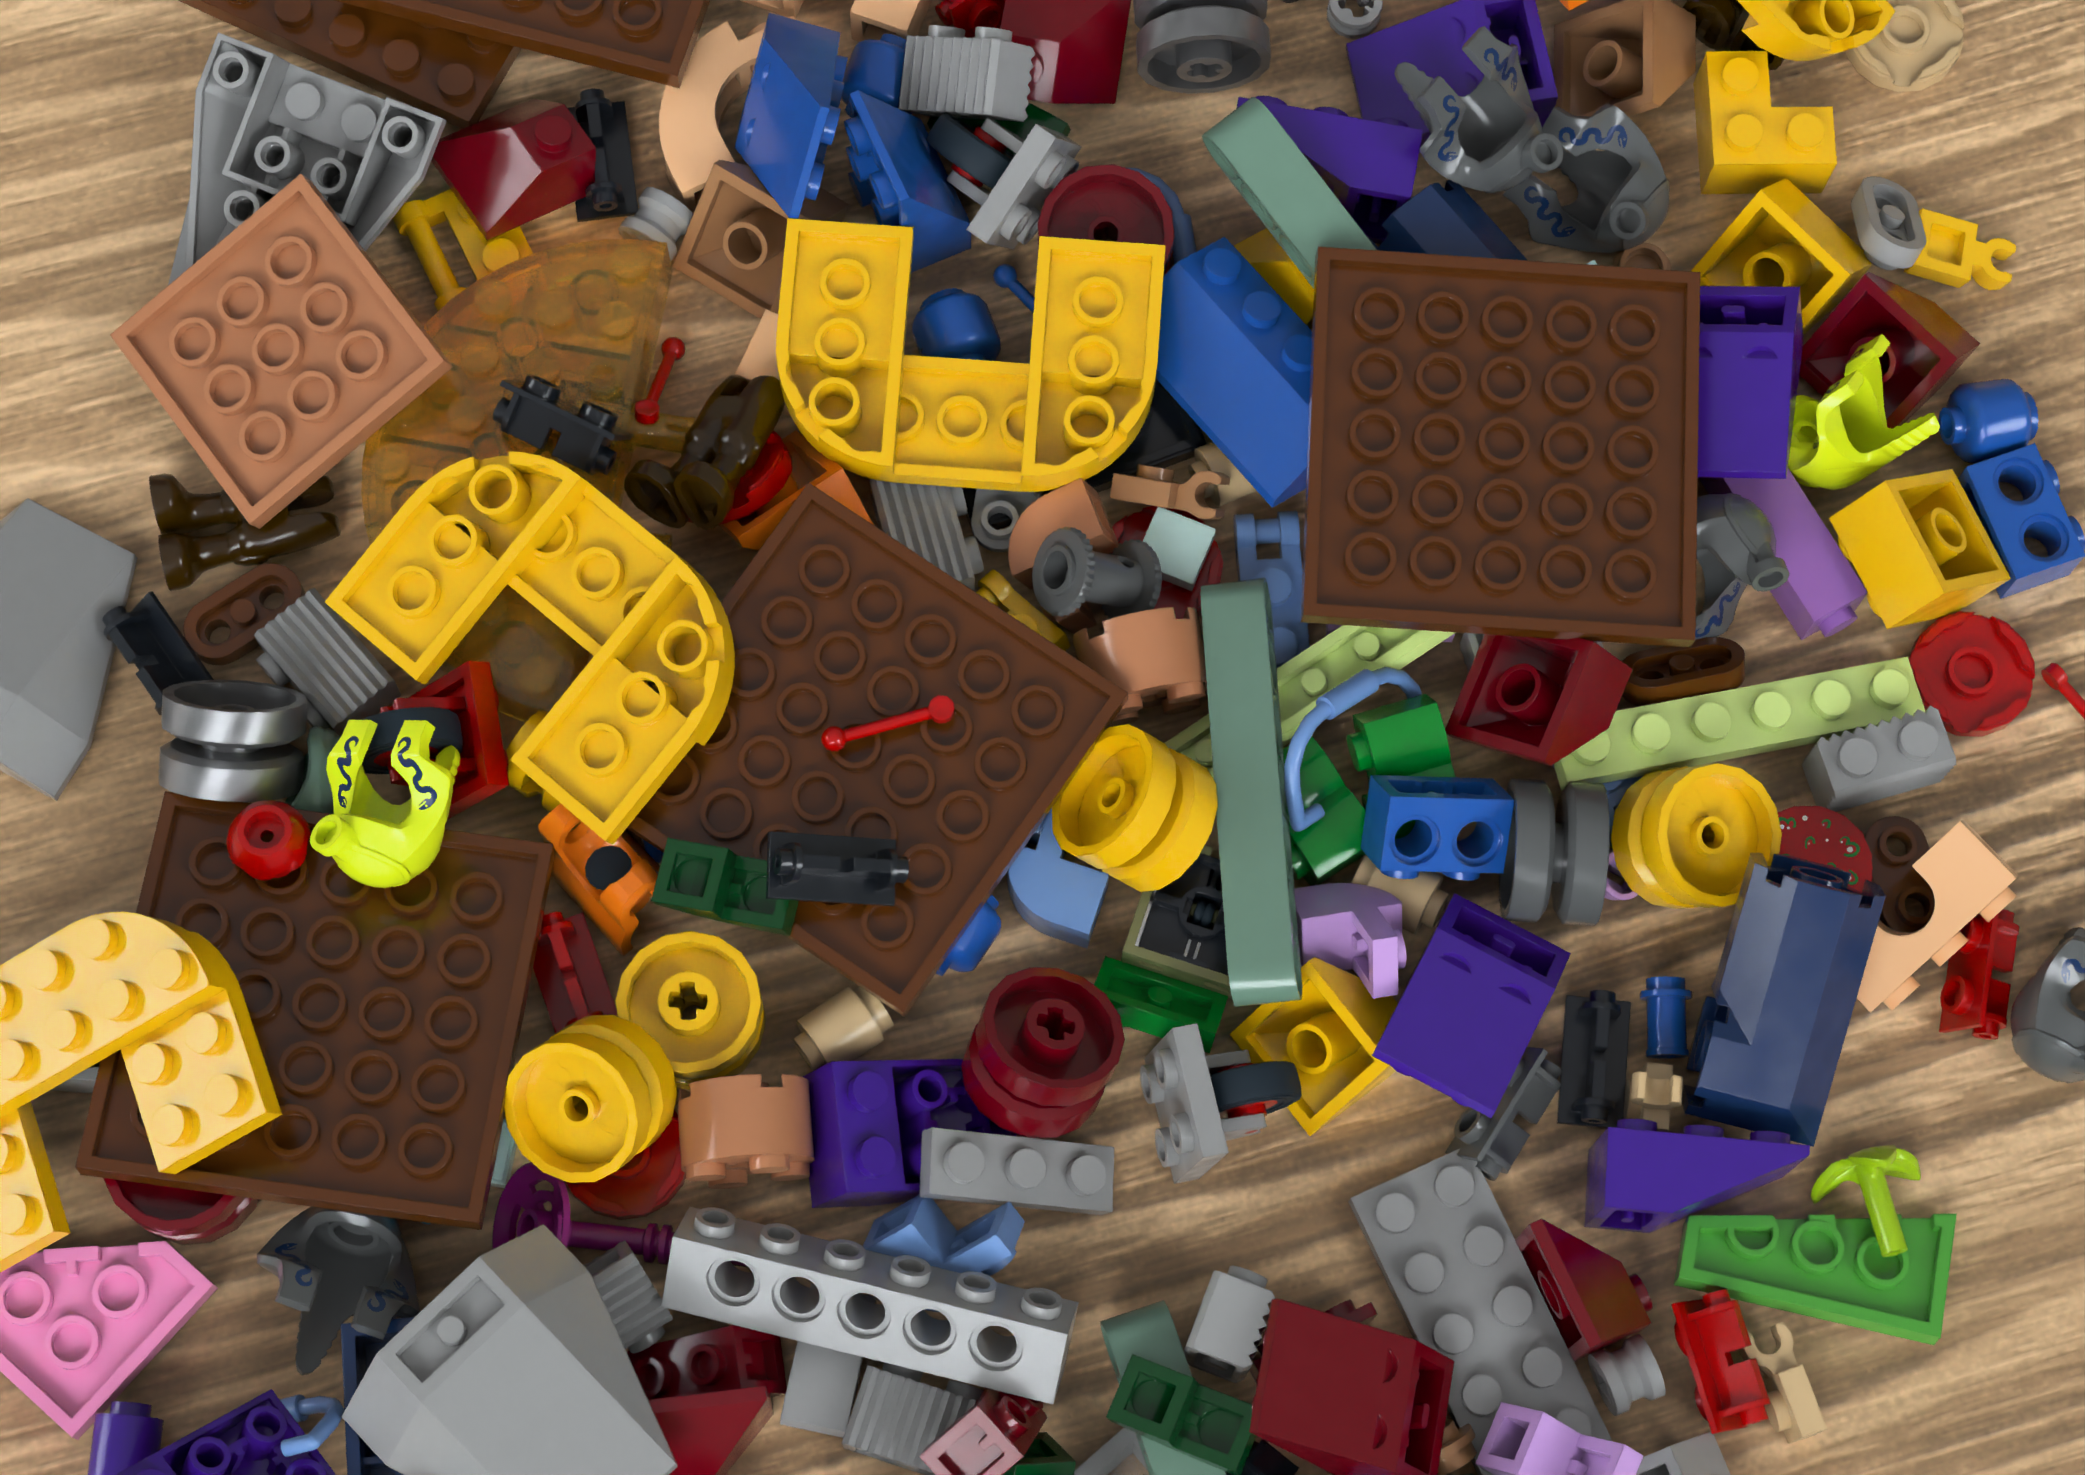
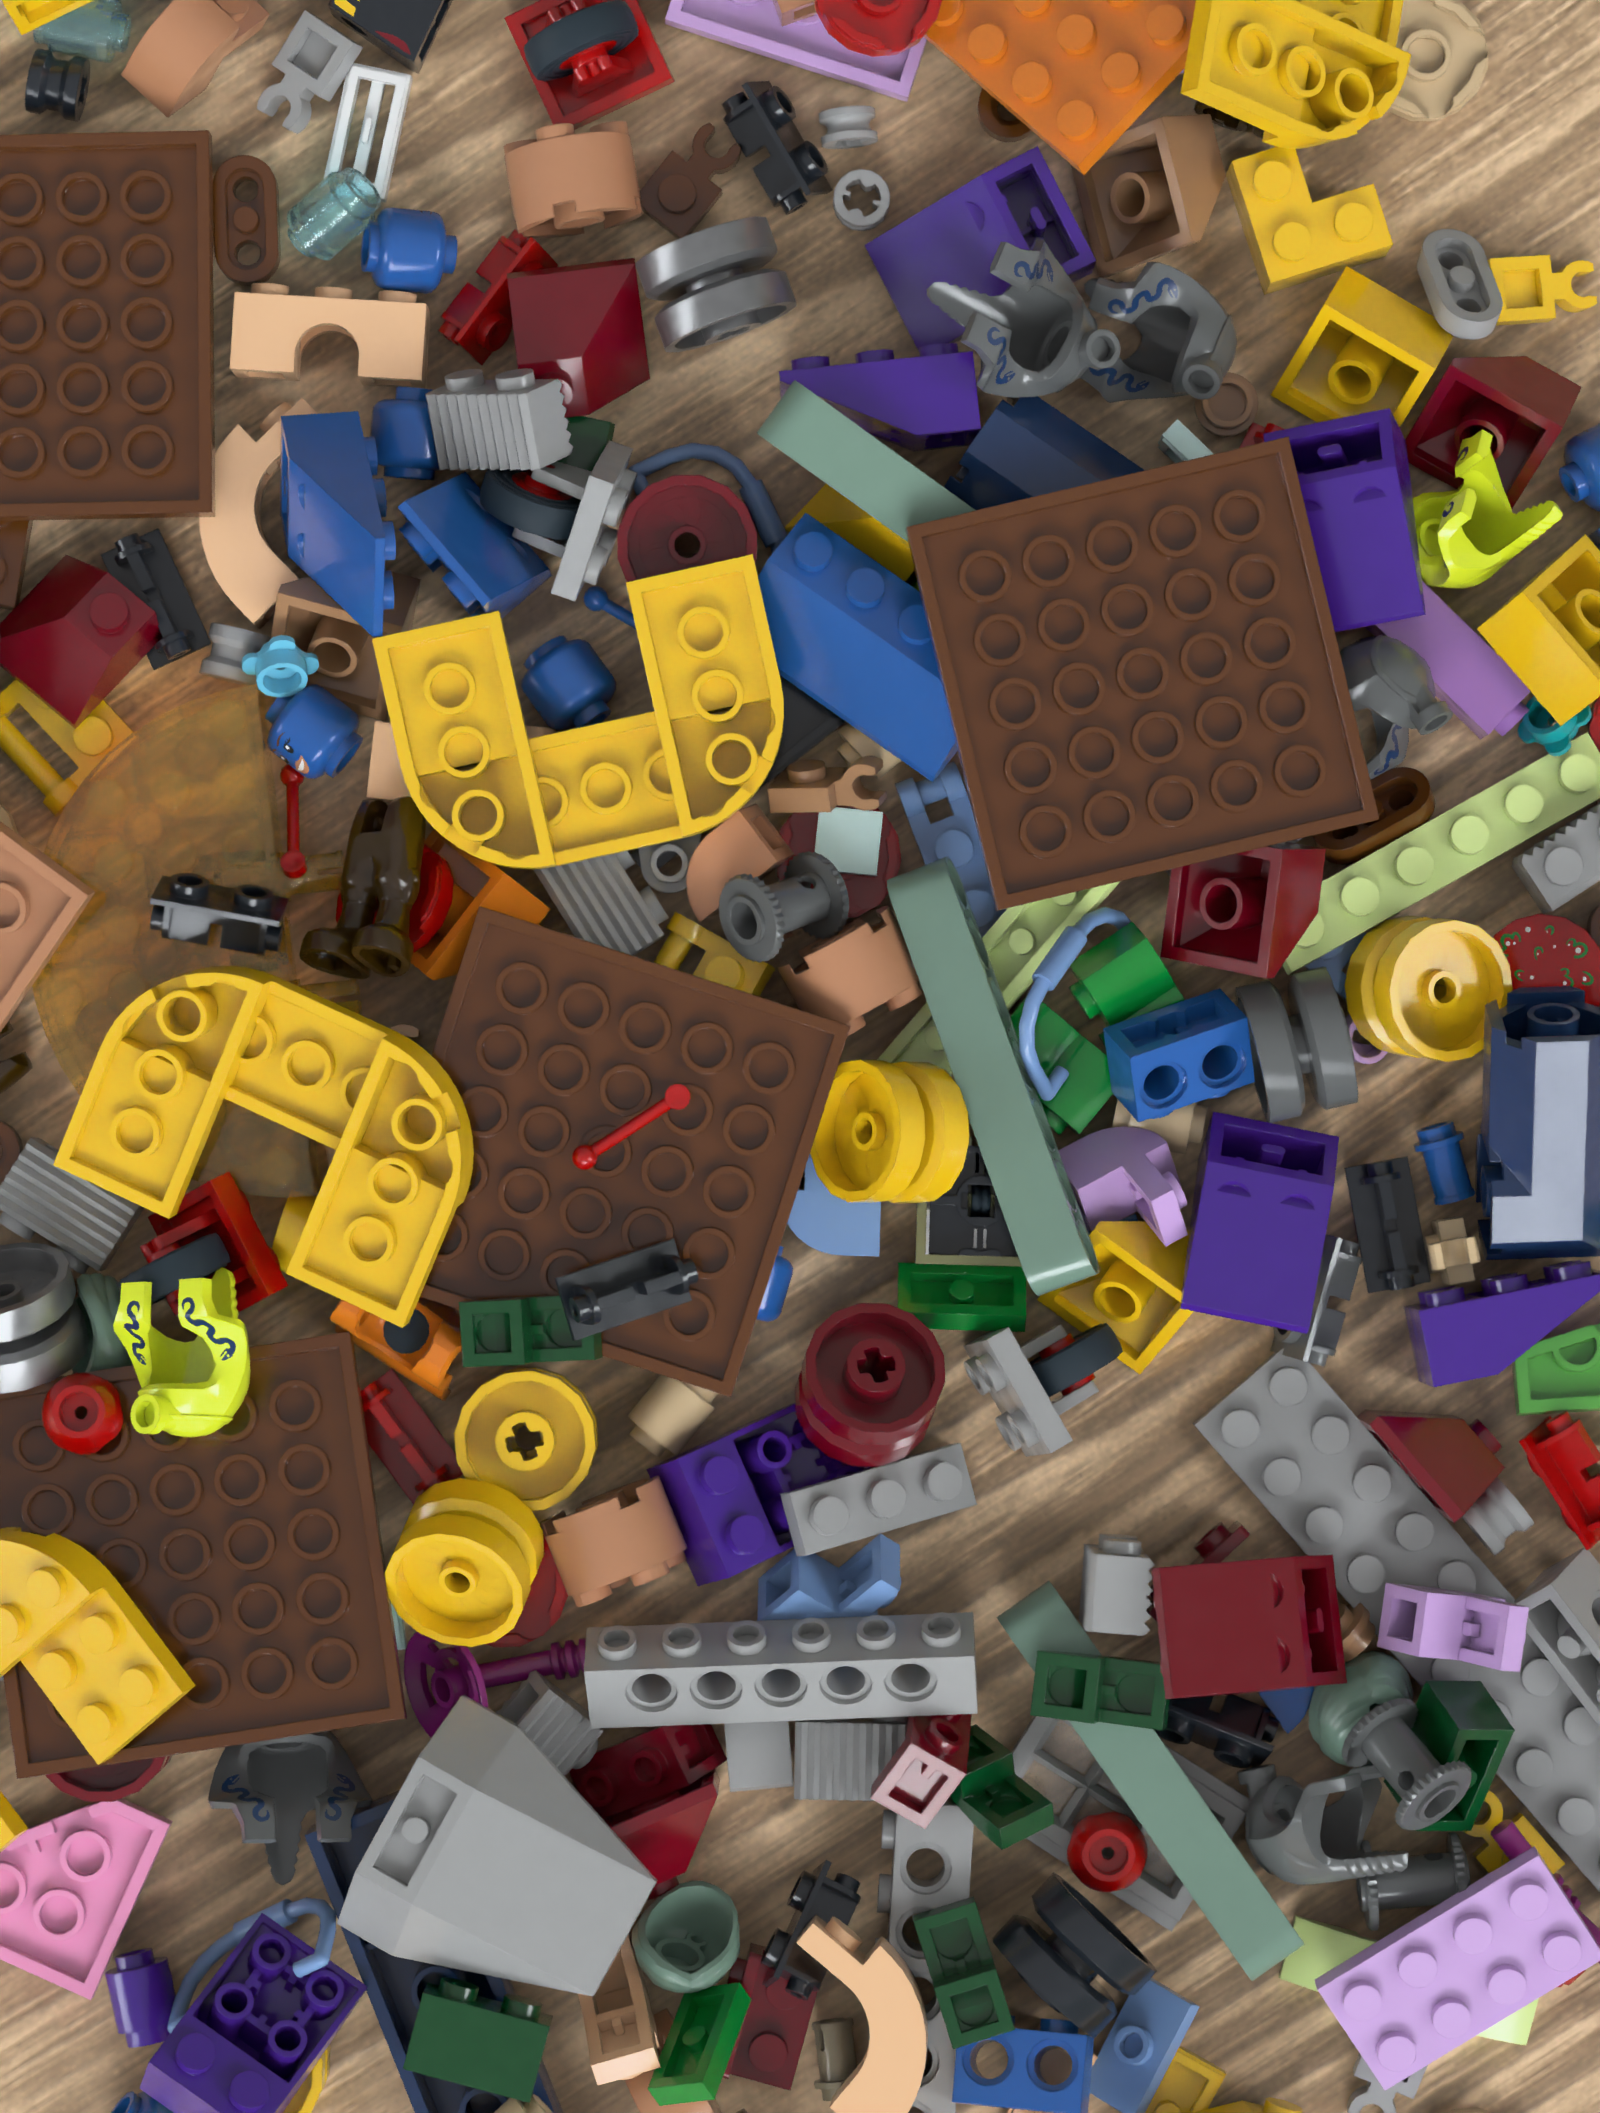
camera: 10 degrees left, 15 degrees up
(689, 249) = (280, 667): none -> medium azure plate
(705, 309) = (313, 732): none -> blue head
(1873, 640) = (1556, 738): none -> teal plate

